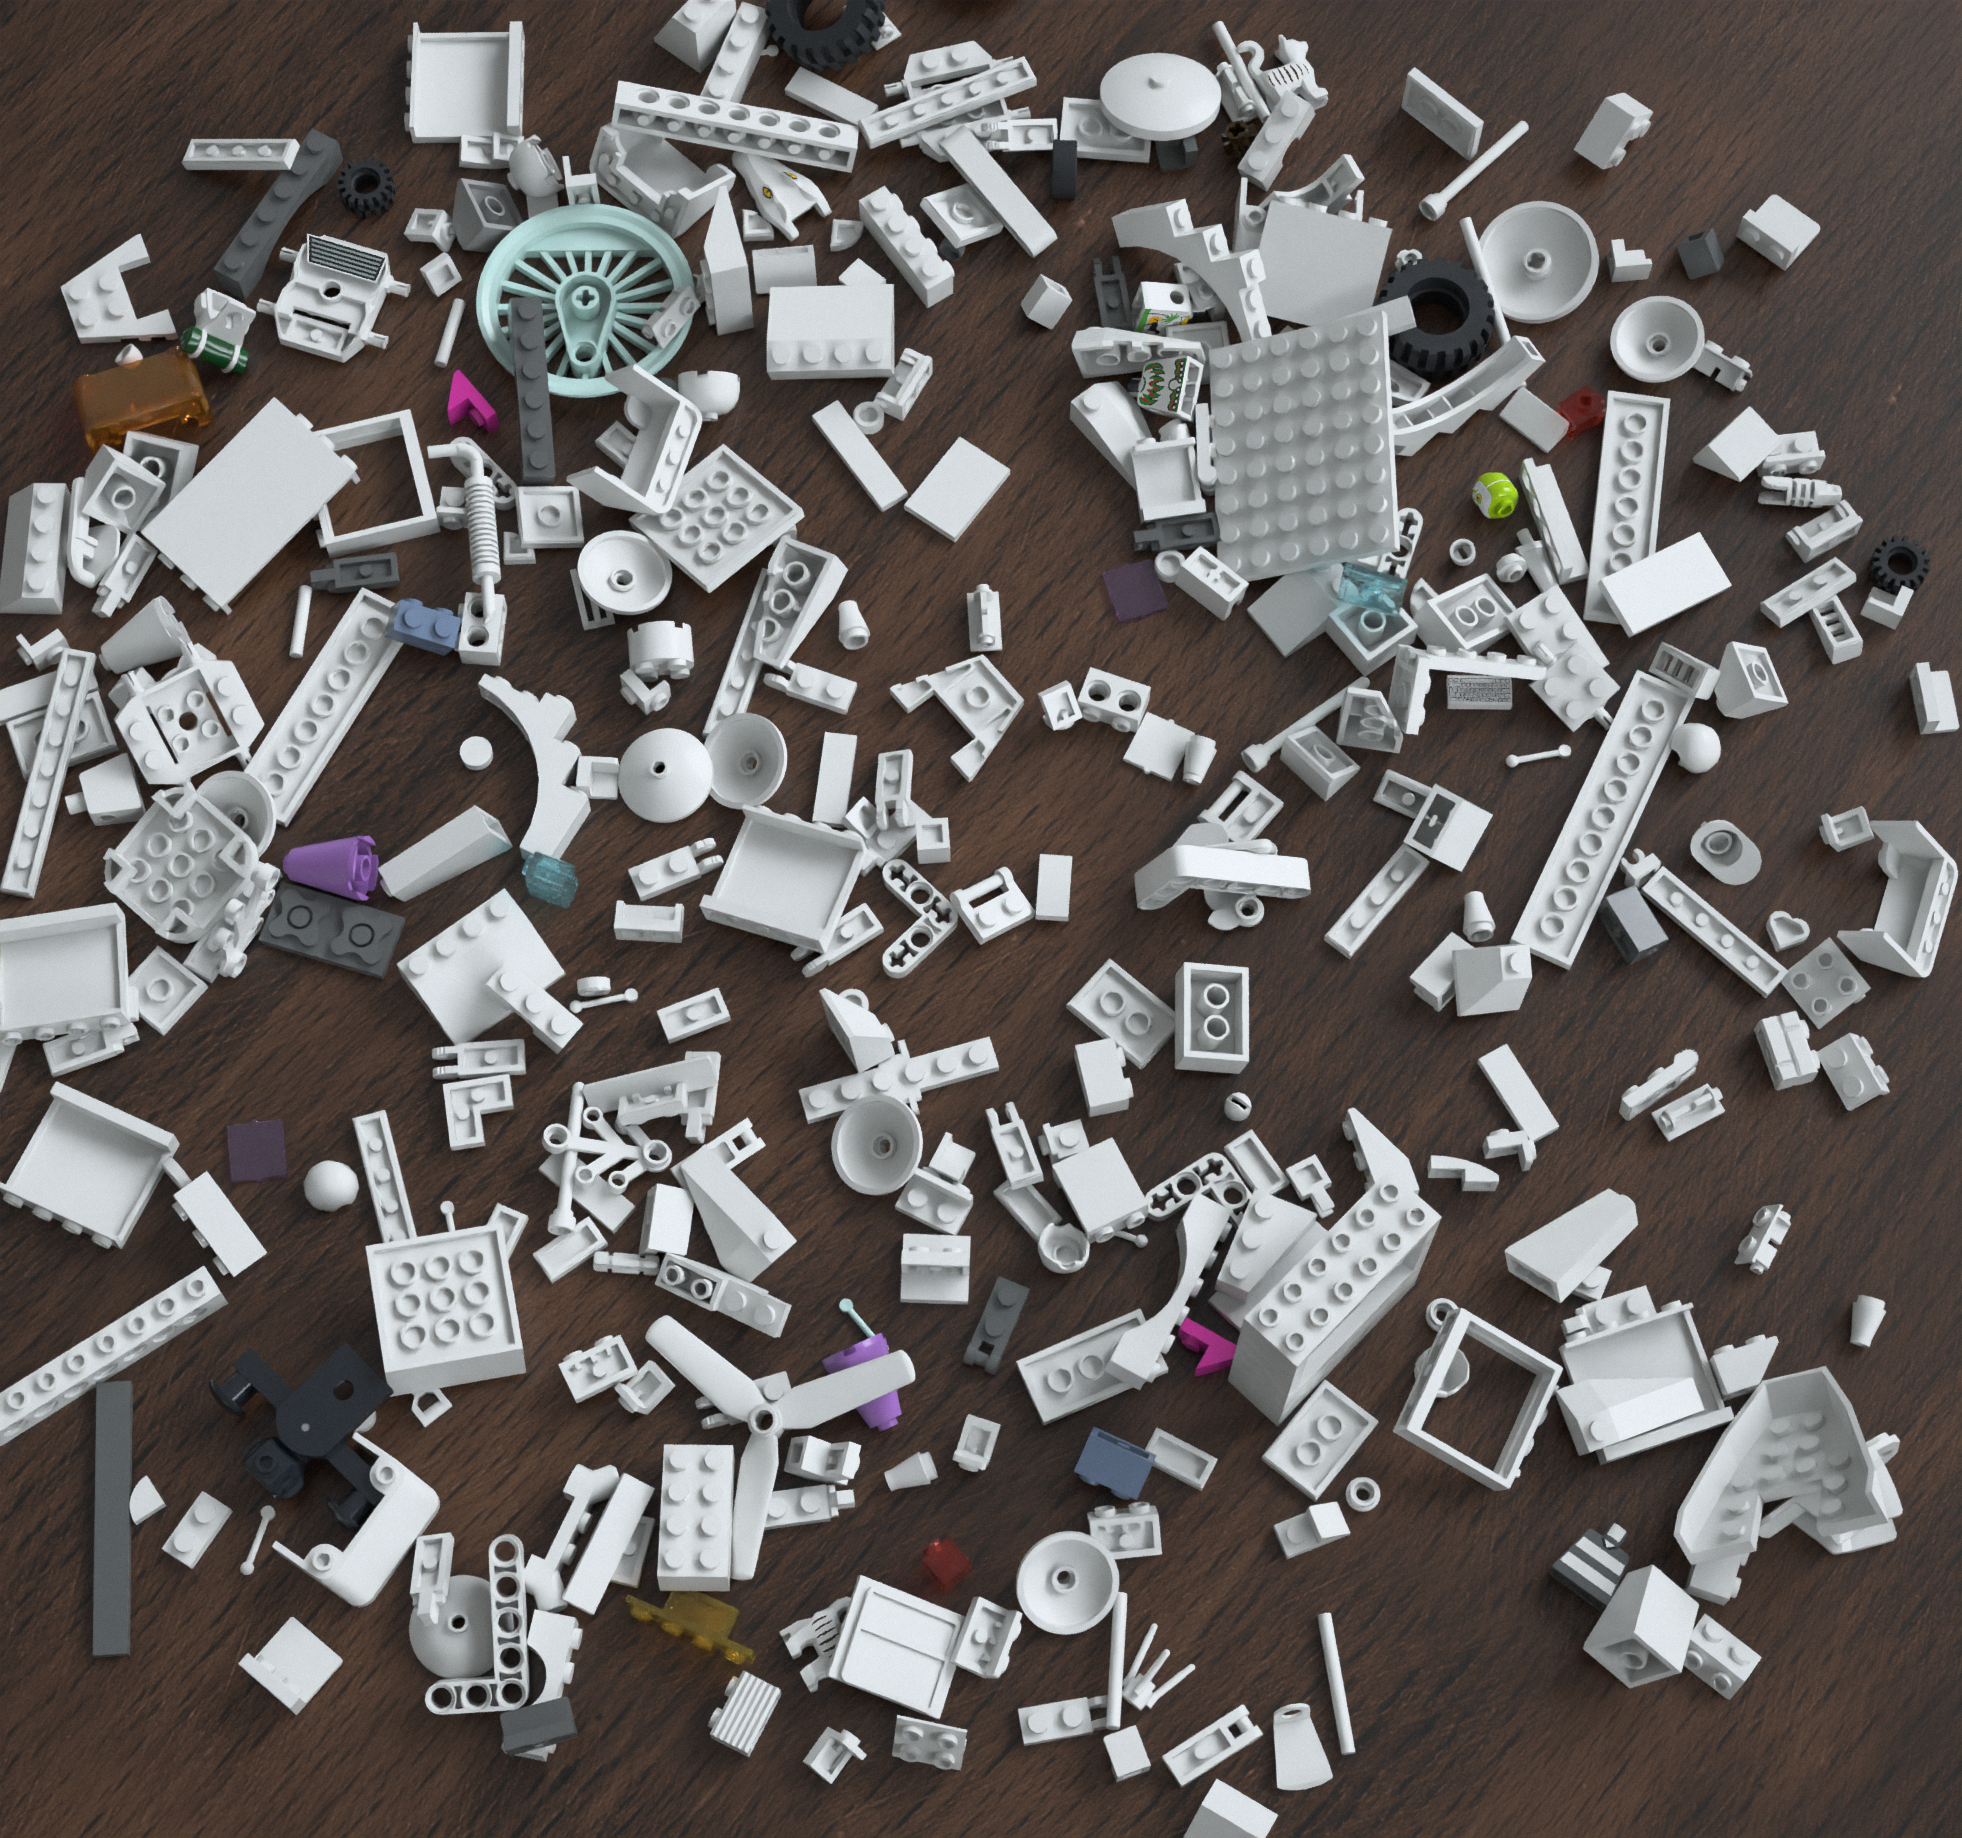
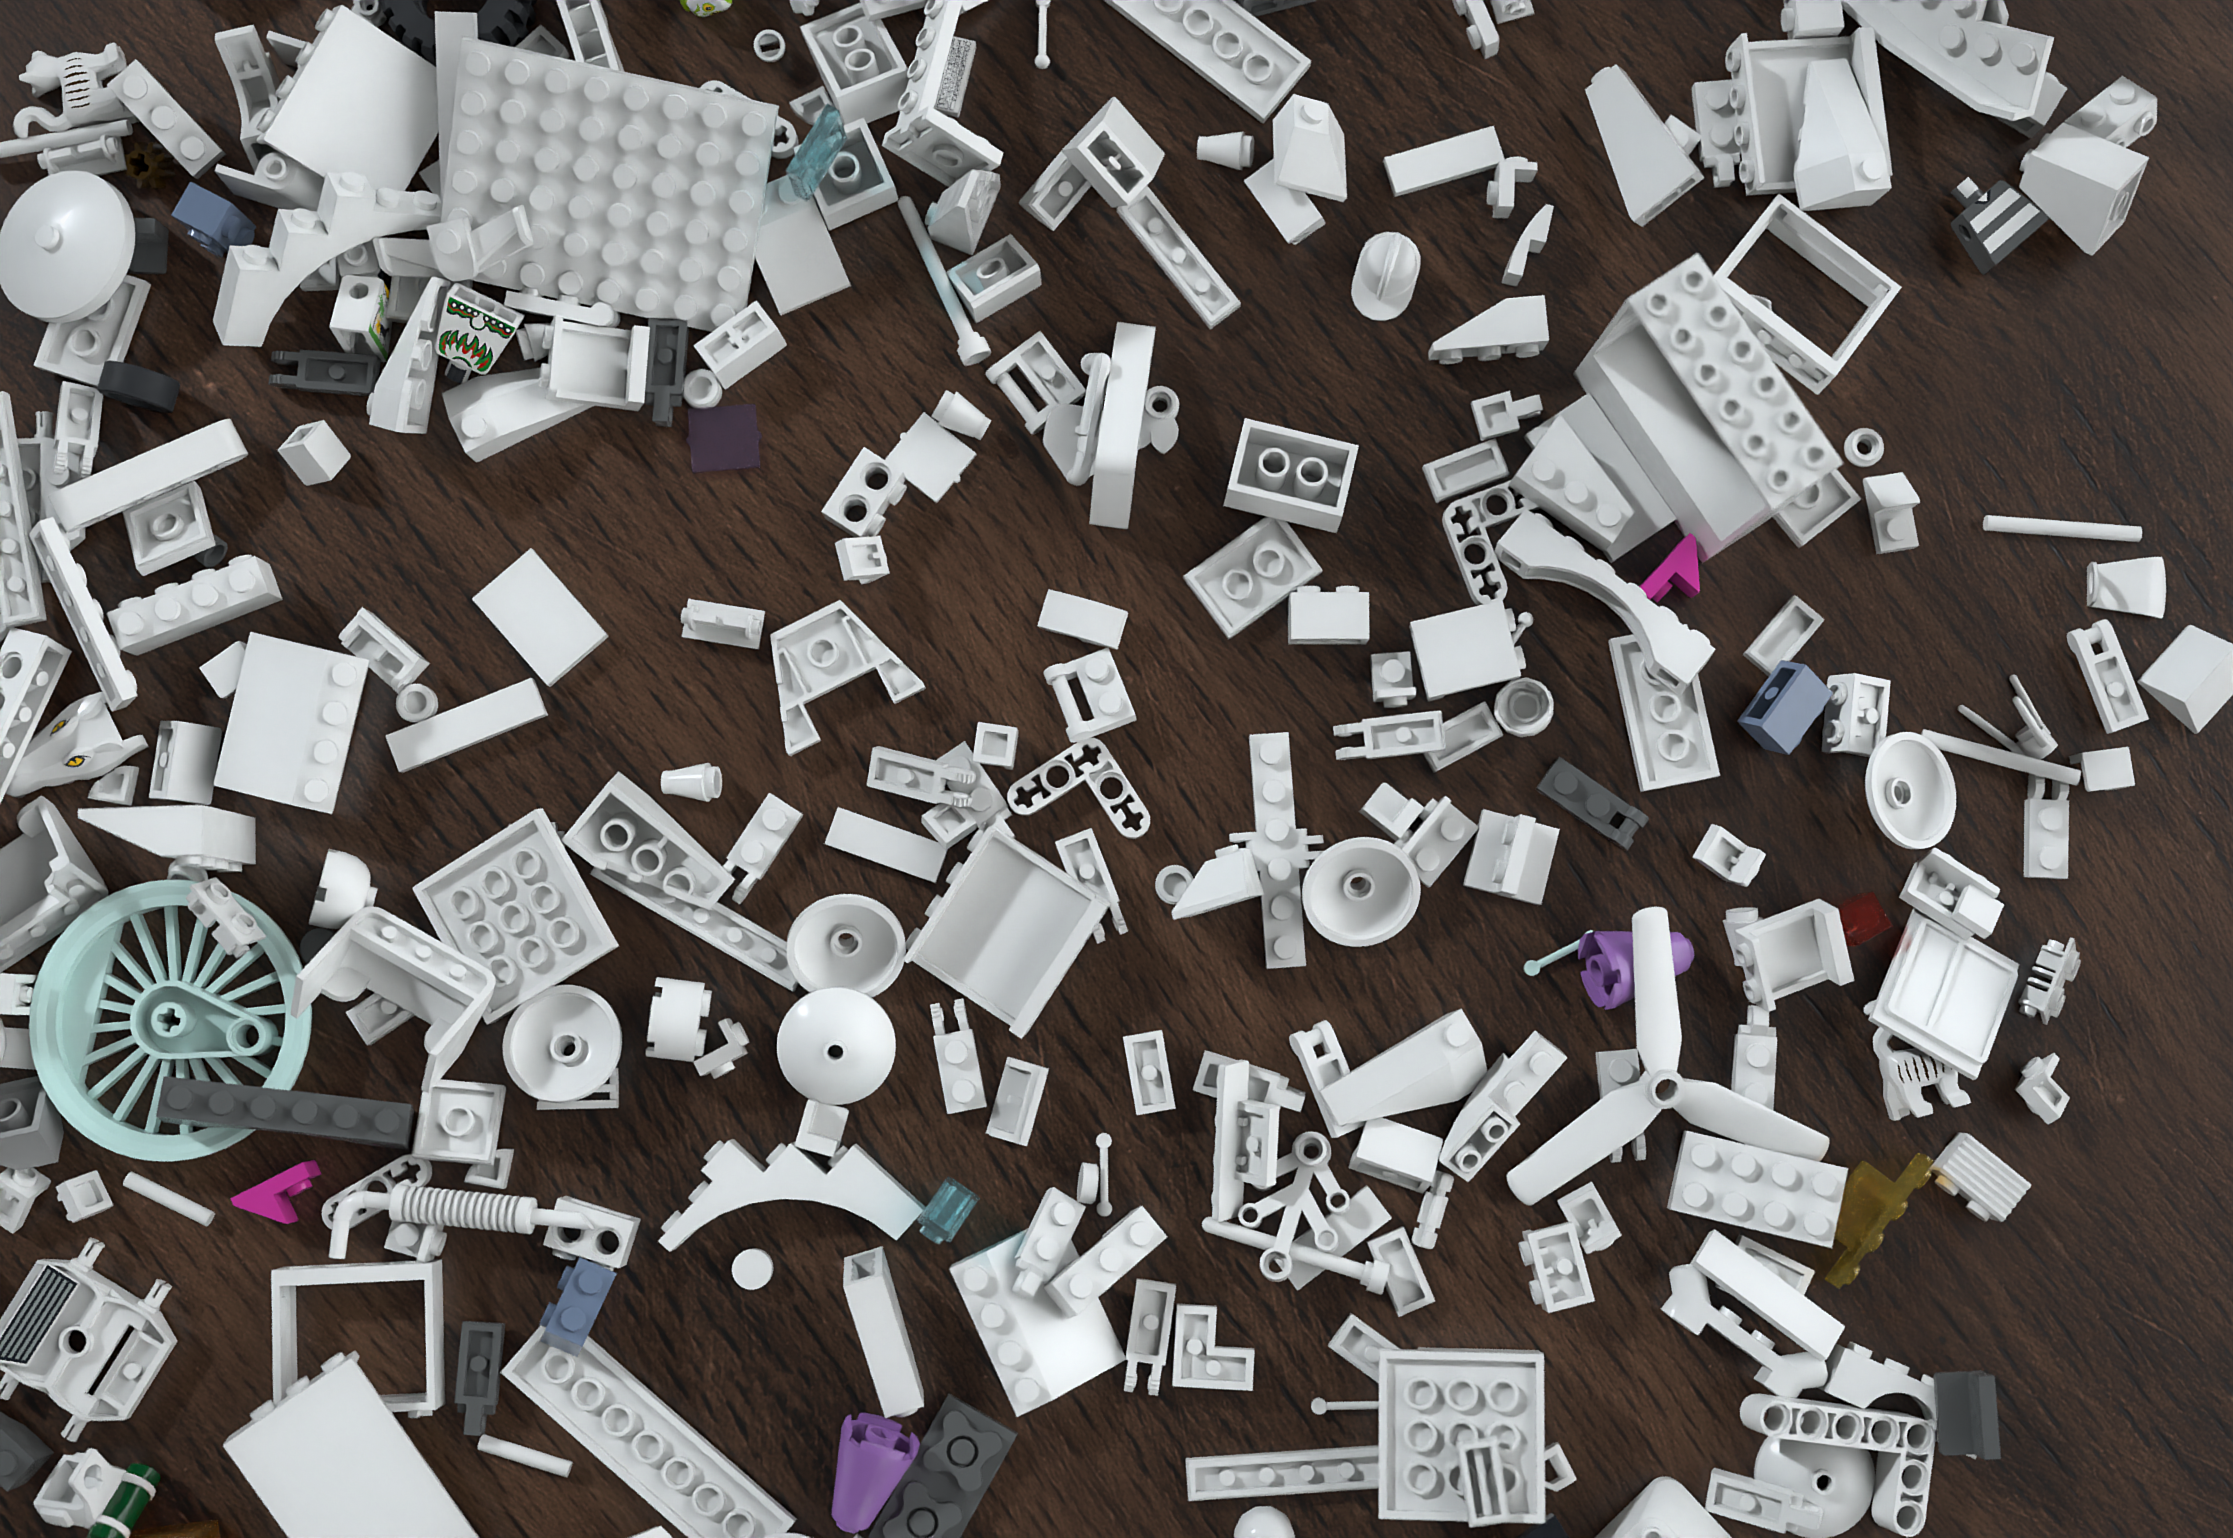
camera: 80 degrees left, 15 degrees up
(414, 1328) = (1477, 1445): none -> white tile
(542, 961) = (1046, 1241): none -> white hinge
(822, 1460) = (1715, 1030): white brick -> none
(845, 233) = (155, 677): white tile -> none
(880, 171) = (83, 613): none -> white plate
(902, 1507) = (1792, 952): none -> white panel
(975, 1661) = (1977, 911): none -> white tile
(1205, 189) = (213, 220): none -> sand blue brick
(1227, 354) = (454, 248): none -> white plate
(1233, 1110) = (1397, 480): white hinge -> none
(1407, 1068) = (1385, 276): none -> white piece

